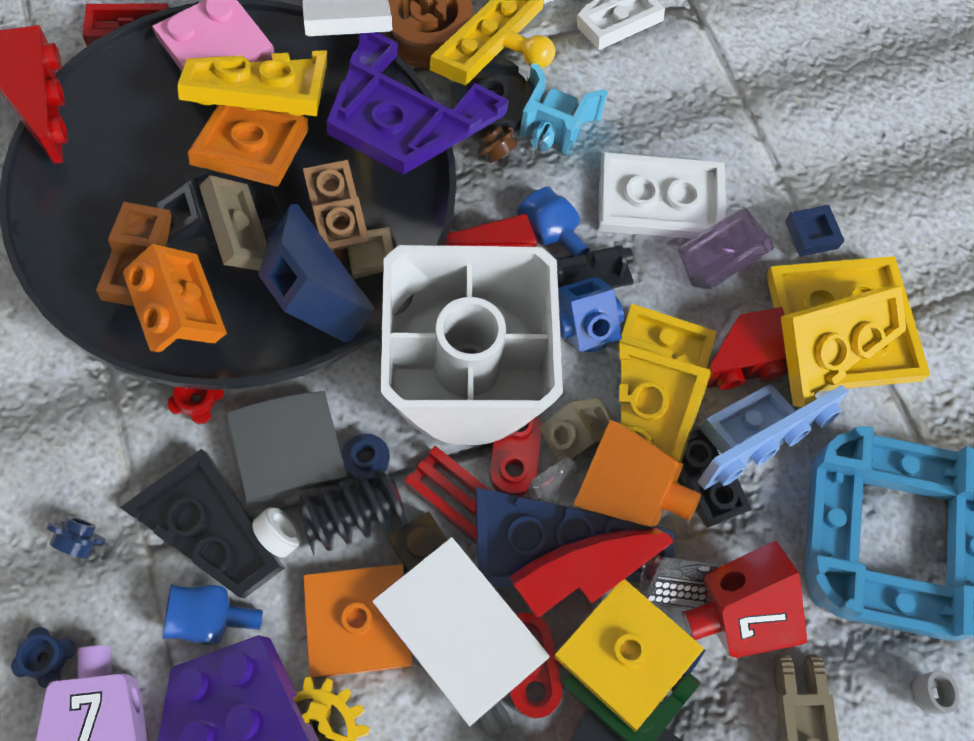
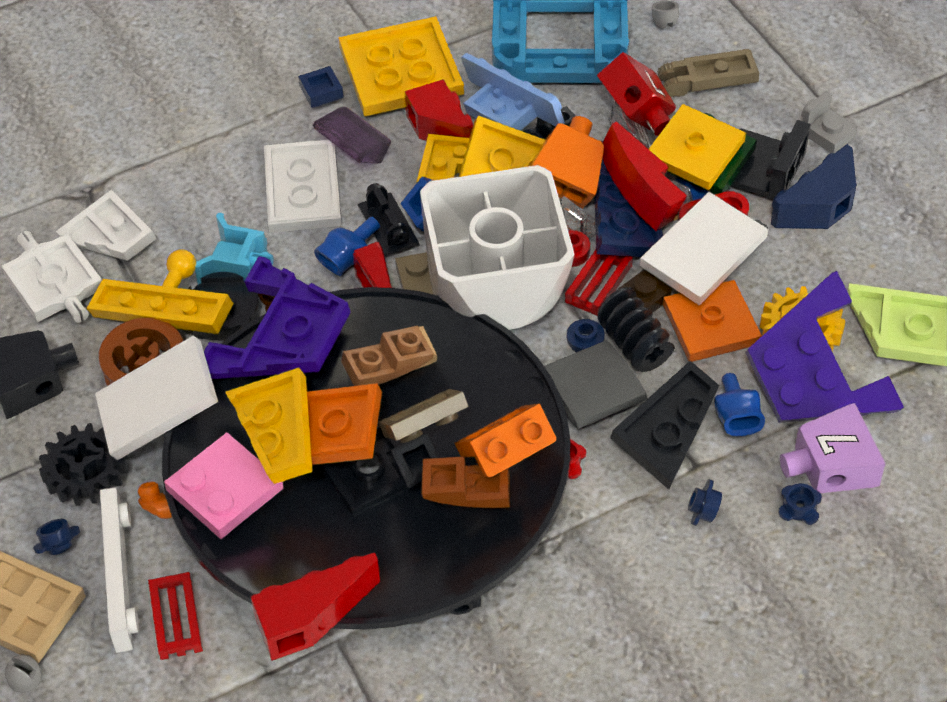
camera: 90 degrees left, 15 degrees down
(277, 532) = (662, 373): white tile -> none
(311, 279) = (459, 353): dark blue slope -> none
(837, 335) = (421, 55): yellow wing -> none

